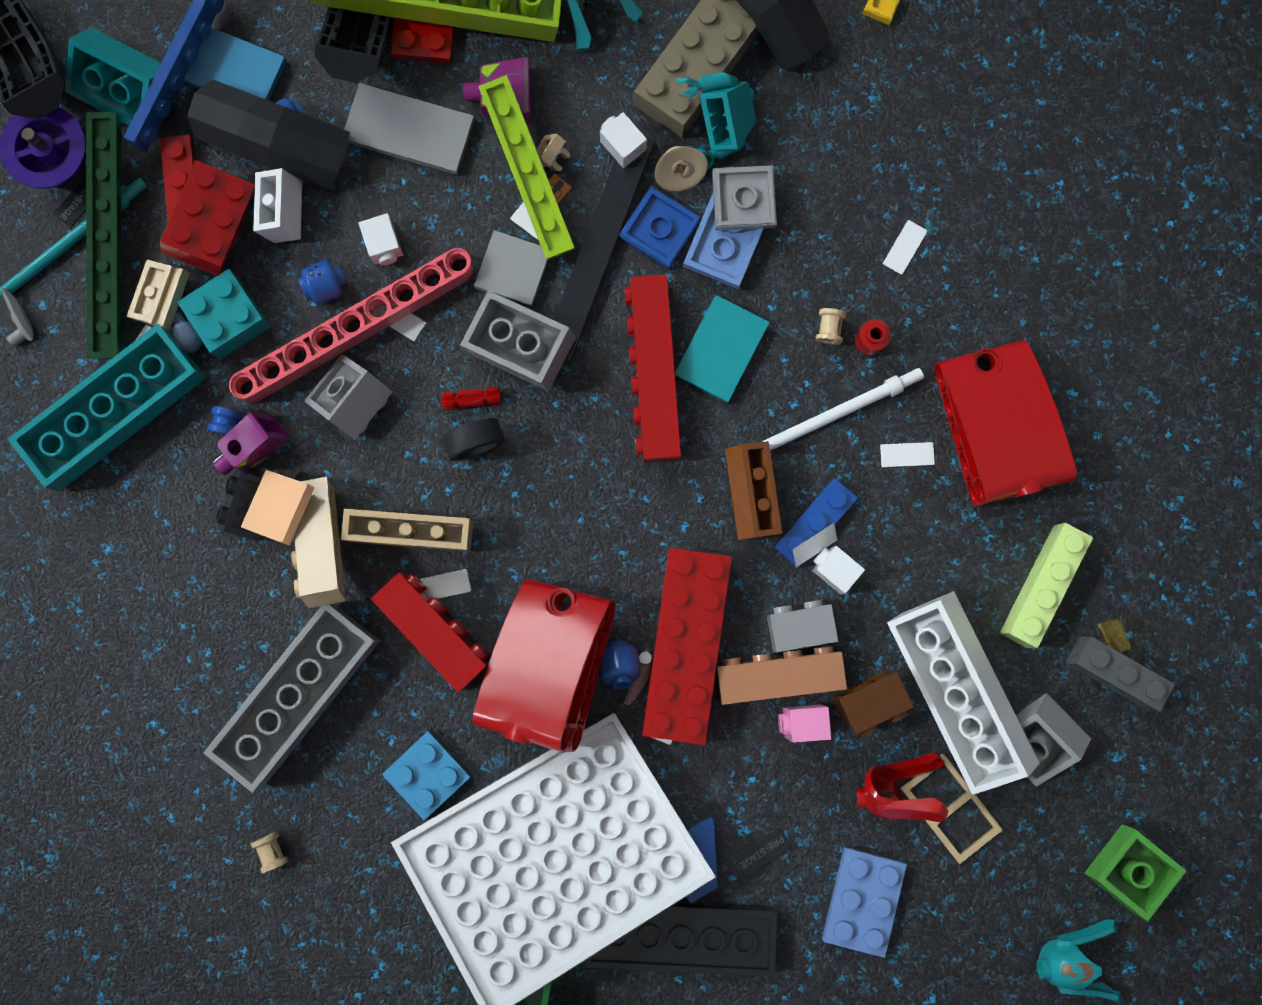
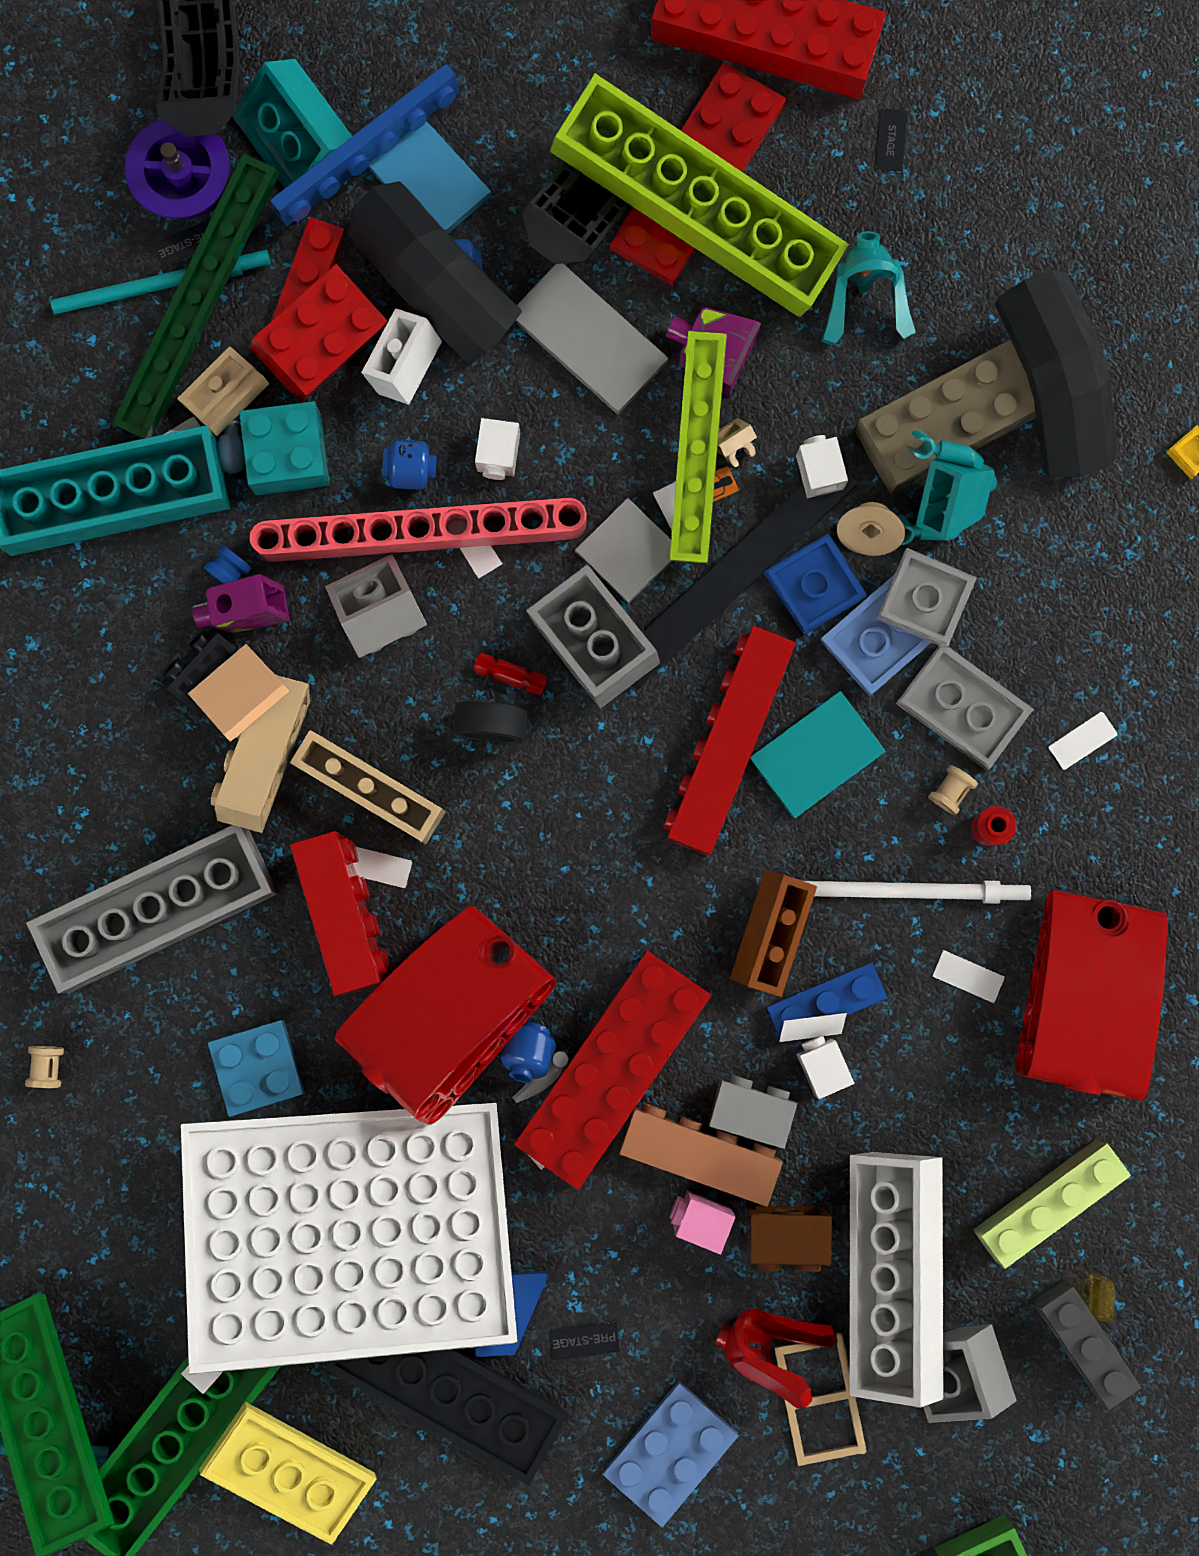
camera: 30 degrees right, 0 degrees up
(20, 319) = (60, 343): light grey bar -> none
(809, 263) = (964, 706): none -> light grey tile

